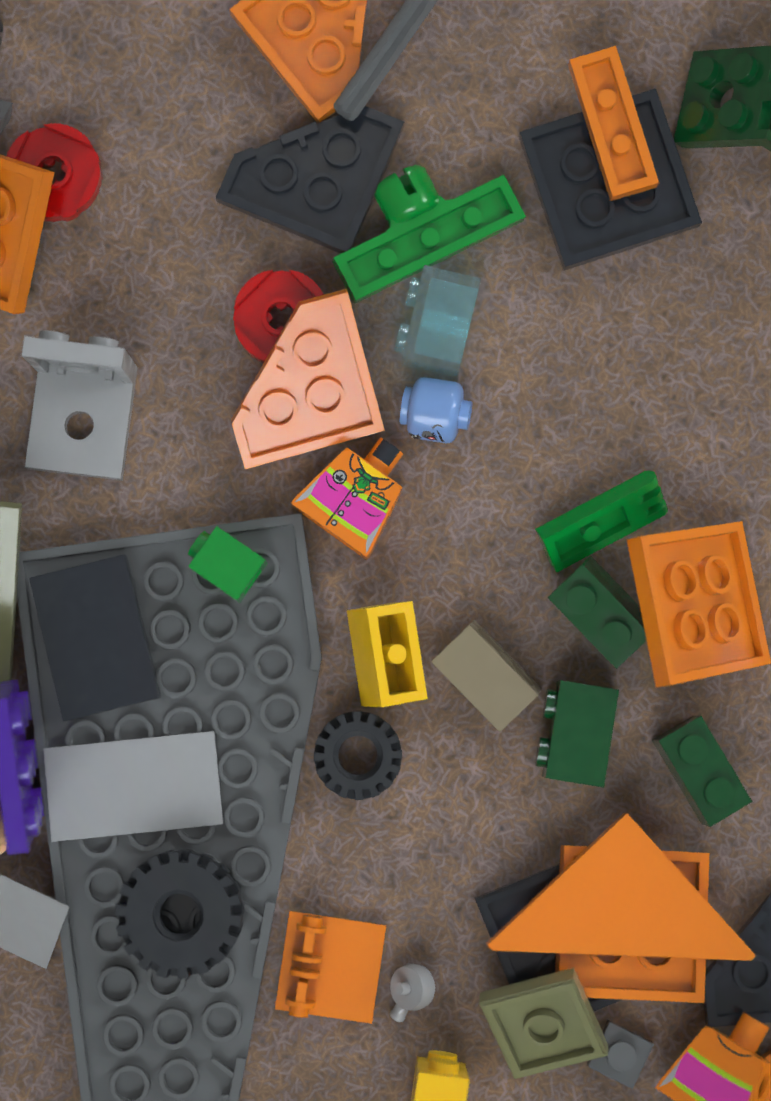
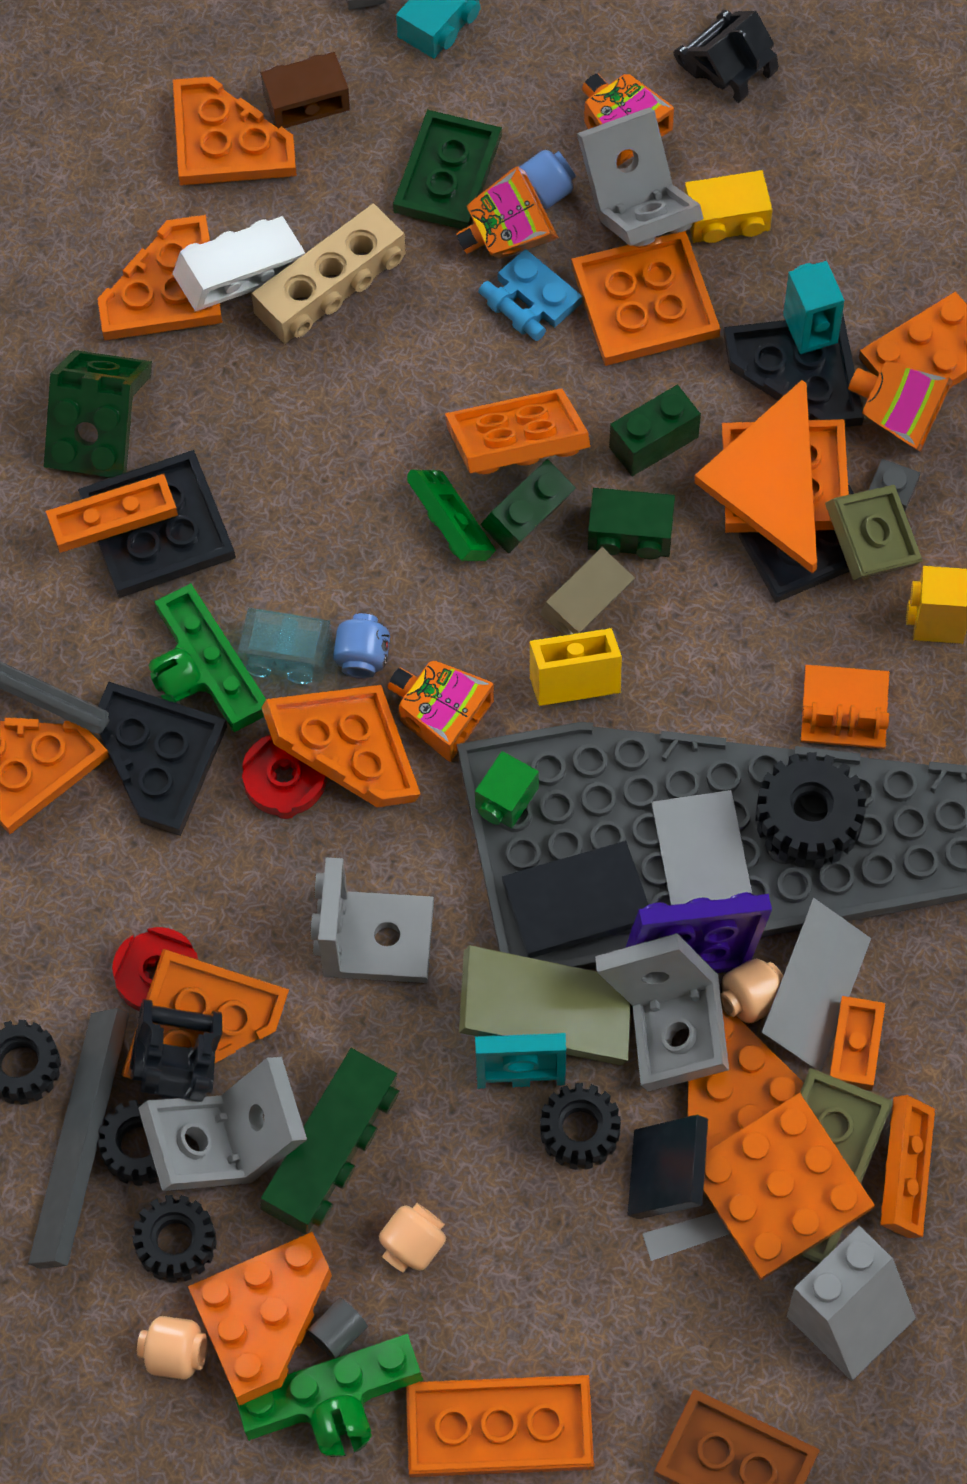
camera: 90 degrees left, 20 degrees down
(388, 755) = (663, 714): black tyre -> none
(411, 989) = (856, 640): light grey piece -> none

